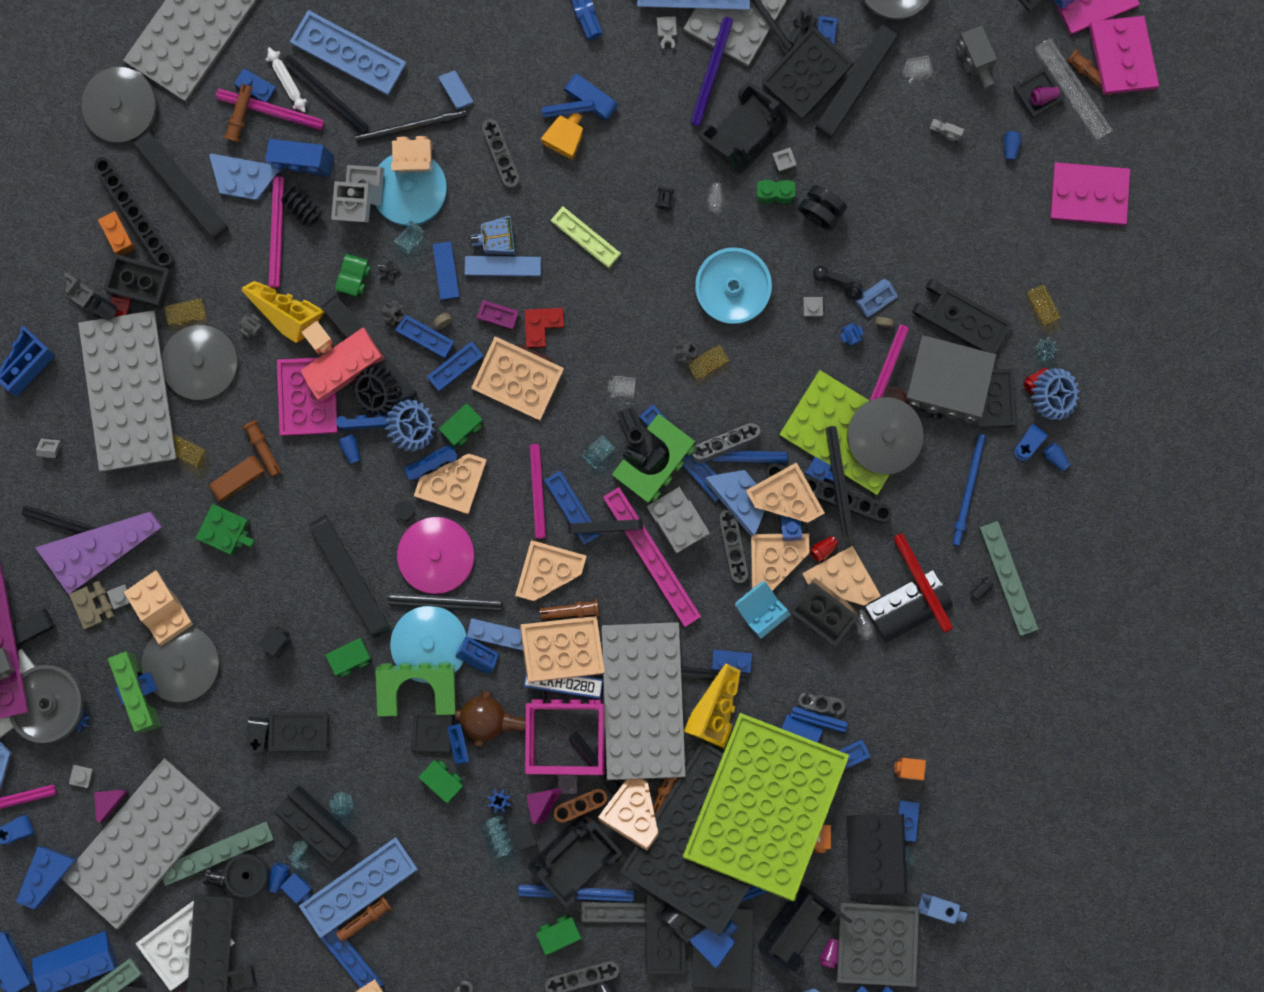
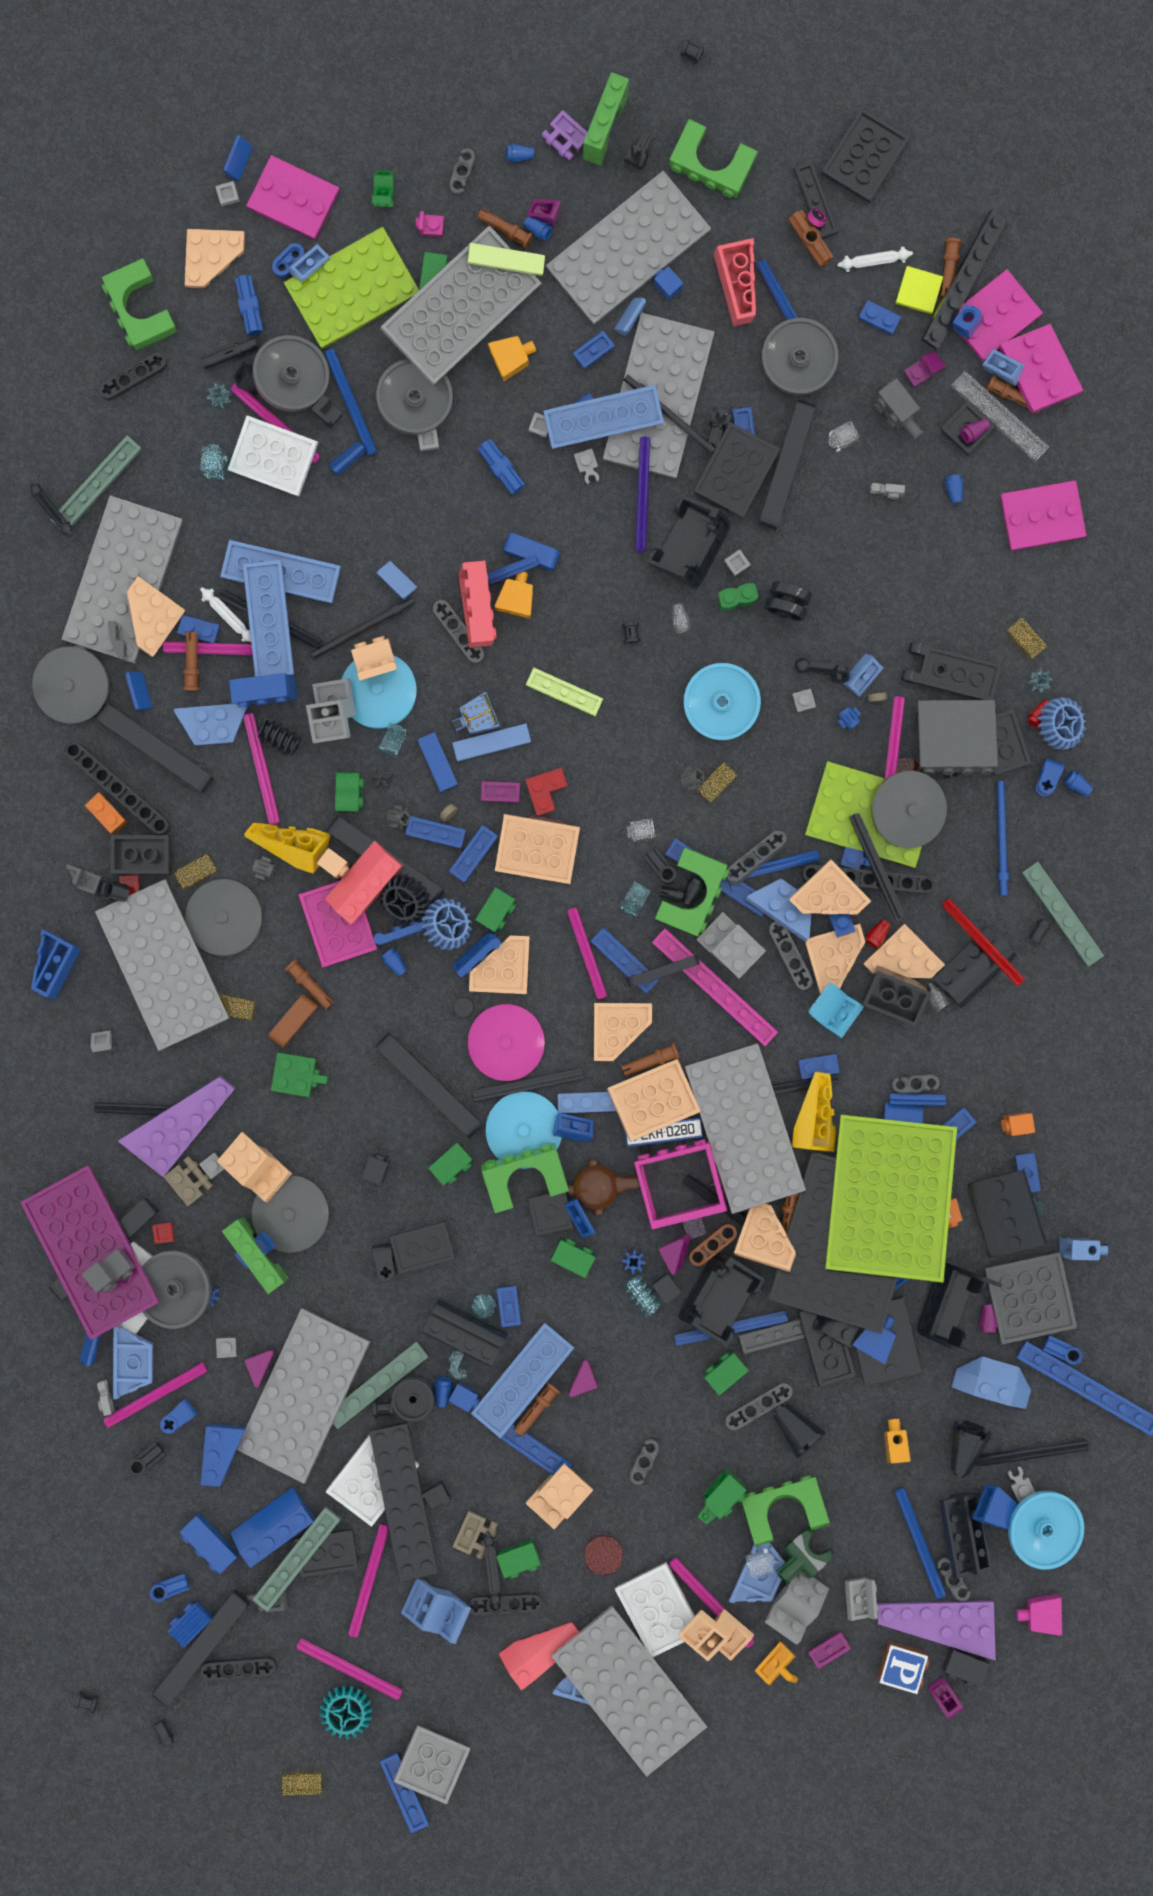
camera: 15 degrees left, 5 degrees up
(53, 648) = (163, 1233): none -> red tile
(175, 79) = (119, 646): none -> dark grey slope
(181, 128) = (138, 691): none -> blue slope
(213, 60) = (151, 615): none -> light nougat plate
(323, 91) = (268, 618): none -> medium blue plate
(365, 811) = (508, 1306): none -> blue plate
(418, 904) = (584, 1380): none -> magenta slope
(524, 131) = (476, 604): none -> coral wedge
(1012, 27) = (924, 369): none -> magenta slope
(1088, 44) = (1003, 367): none -> medium blue slope

